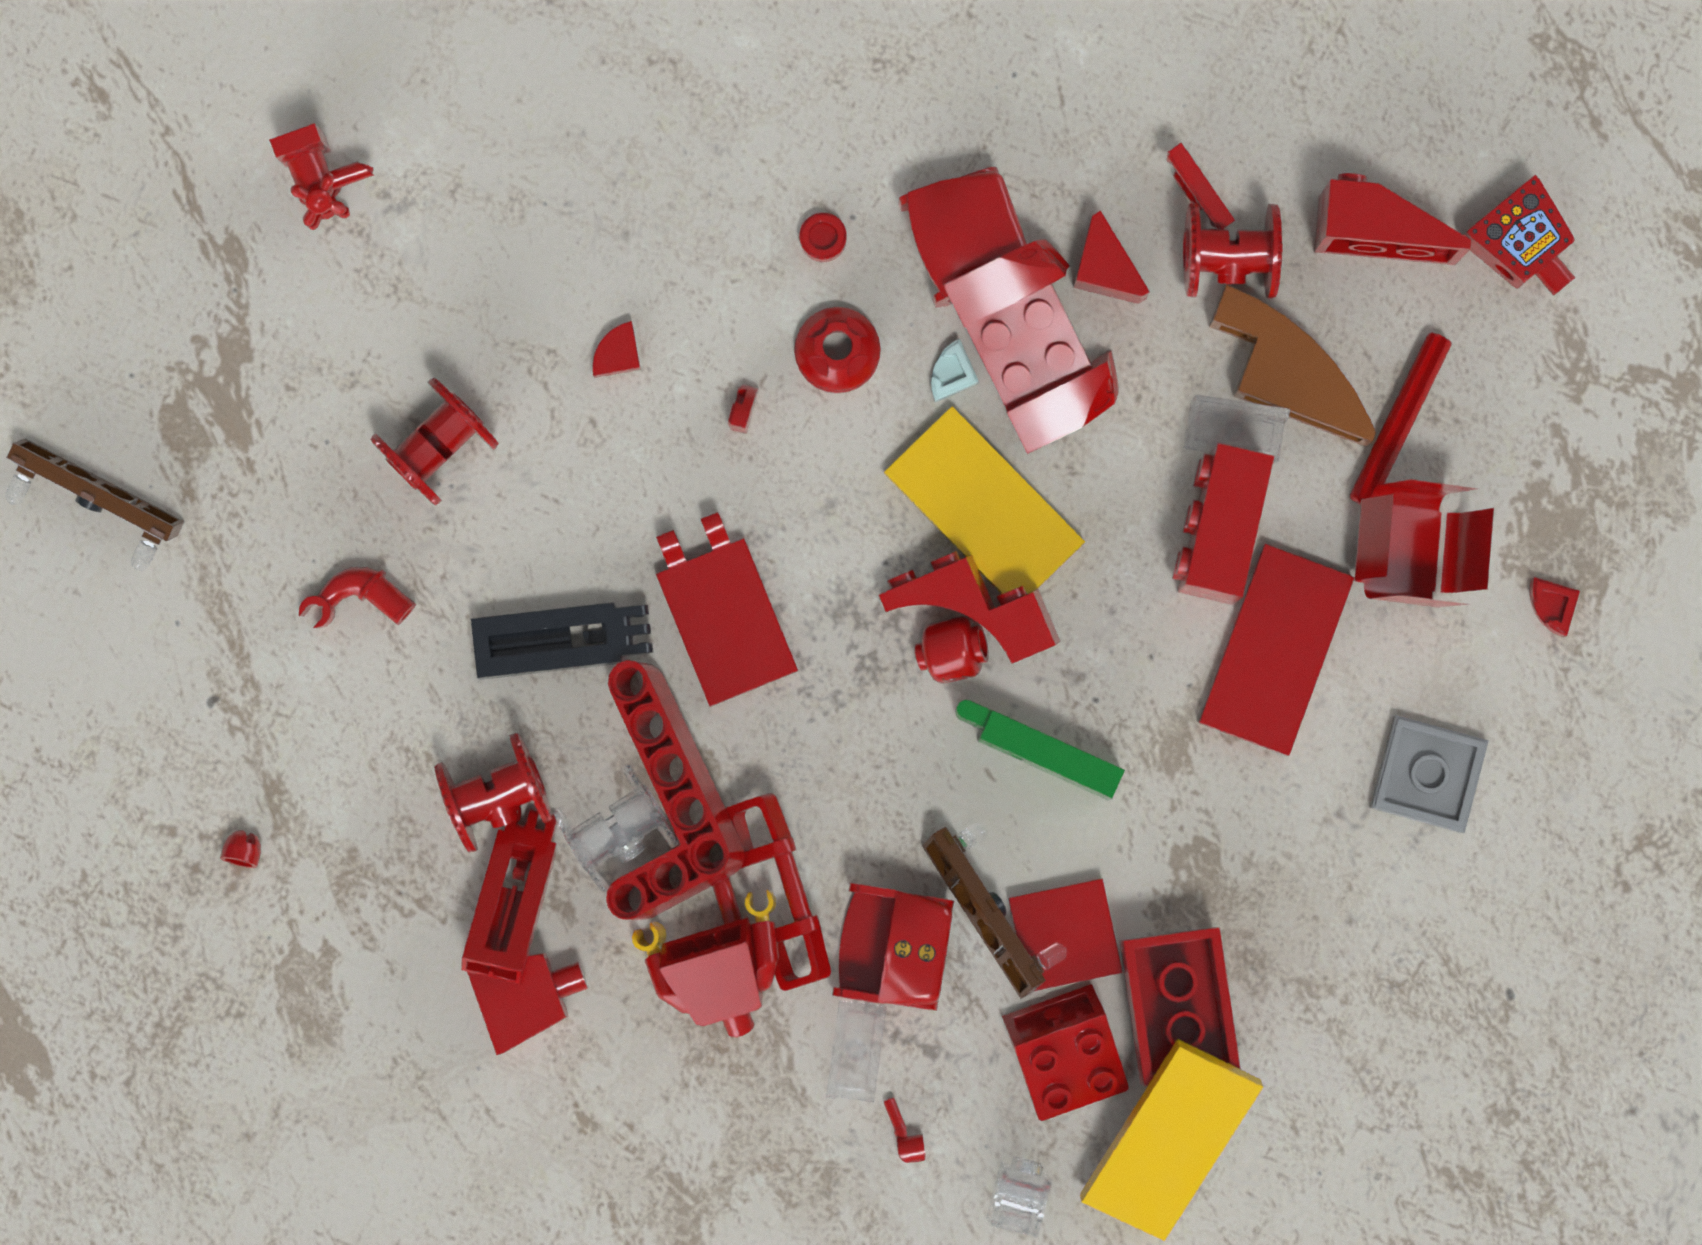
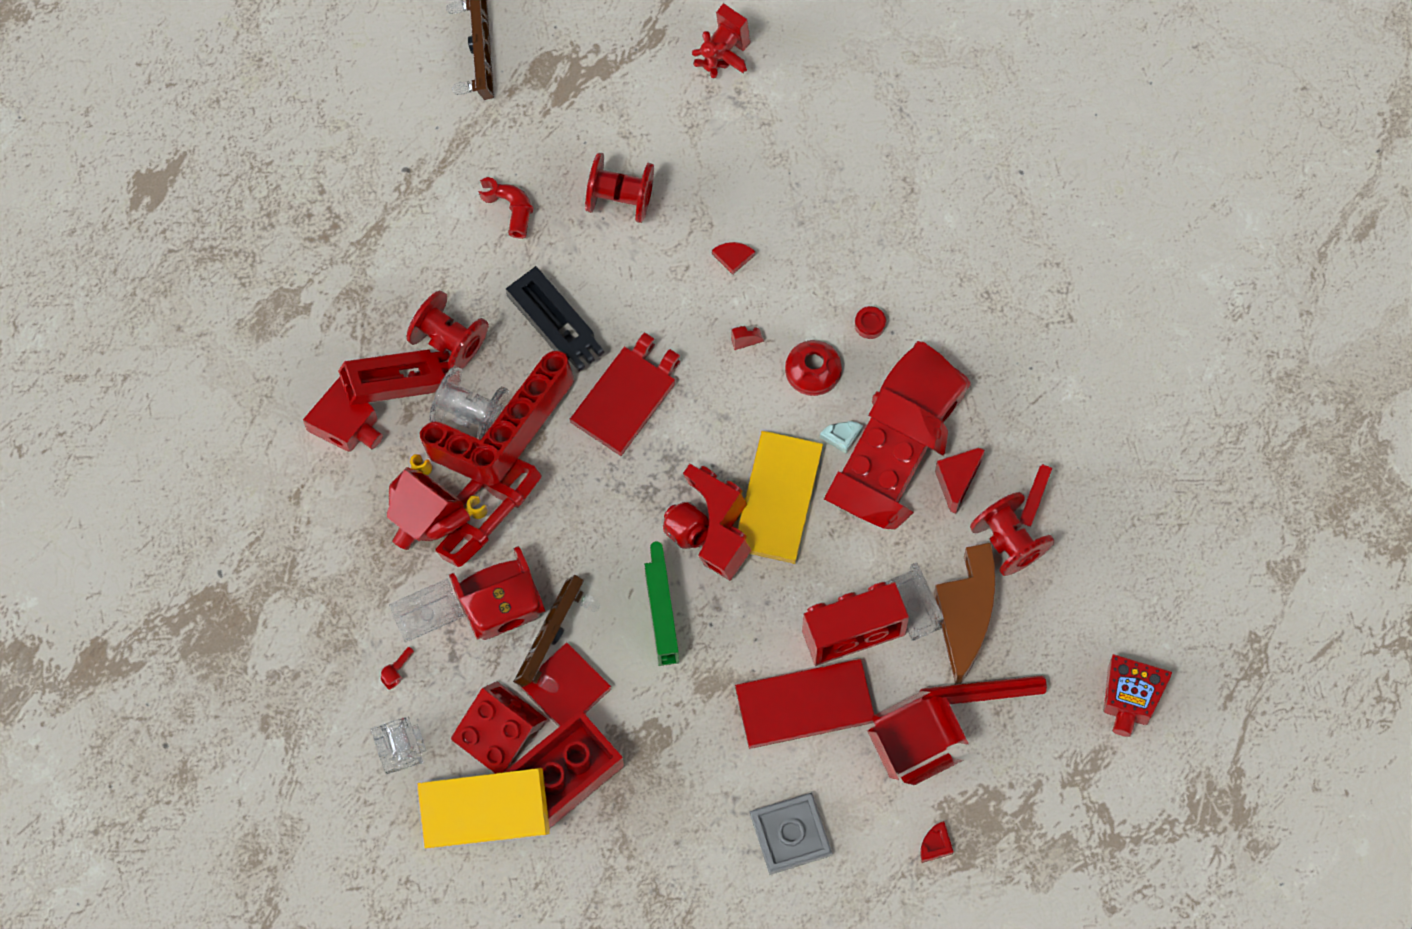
camera: 60 degrees right, 15 degrees down
(241, 849) = (332, 230): red hinge -> none
(1378, 223) = (1079, 598): red slope -> none

